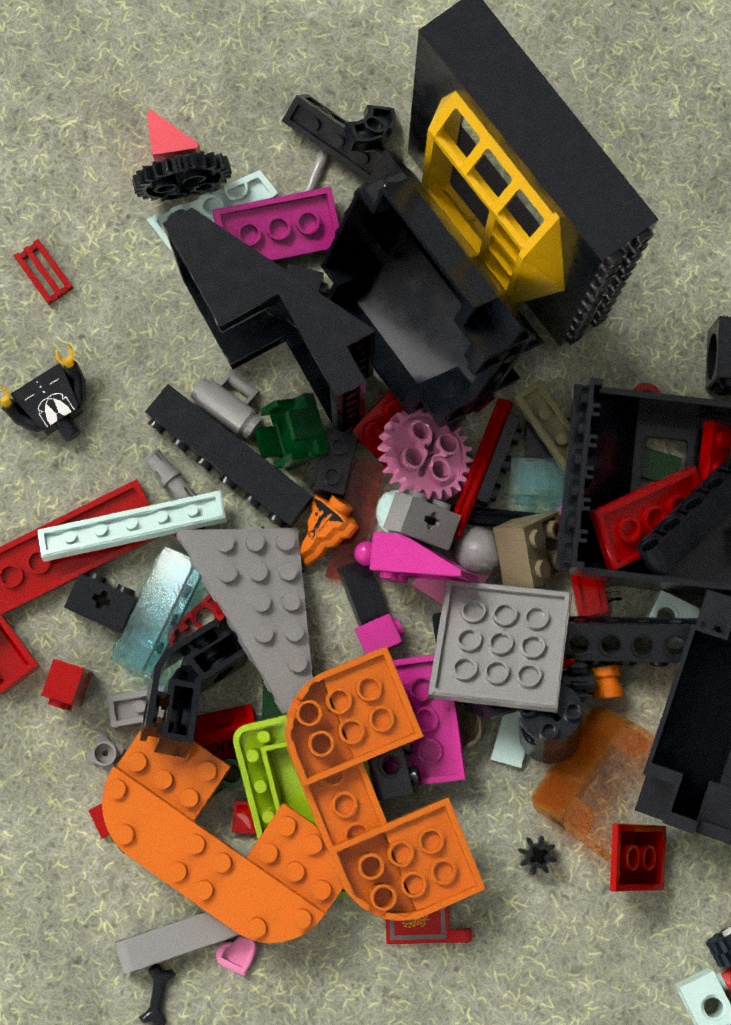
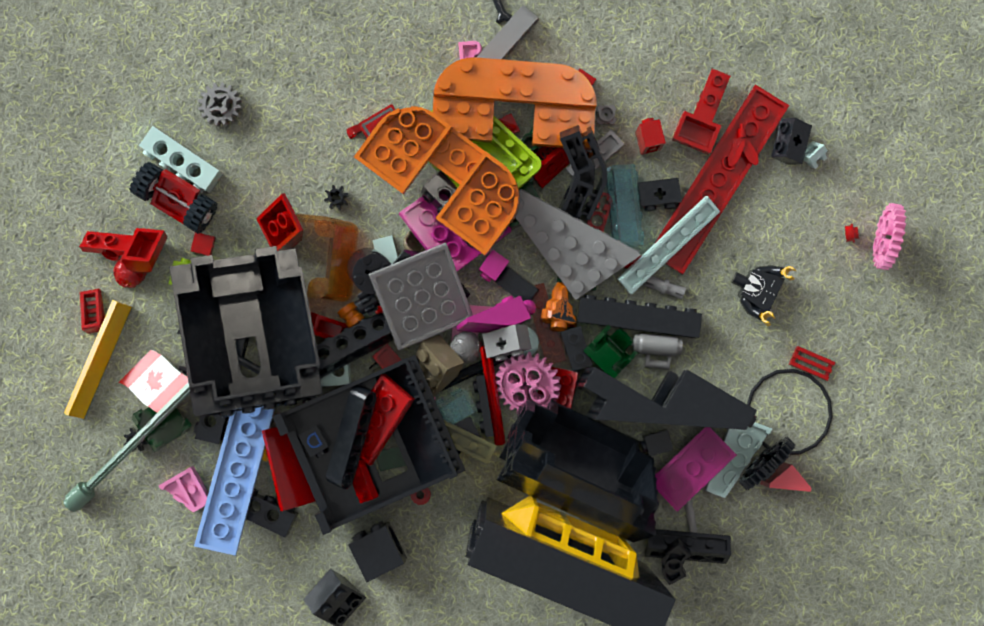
camera: 155 degrees right, 5 degrees up
(53, 249) = (816, 382): none -> black piece
(648, 686) = (325, 326): none -> red slope

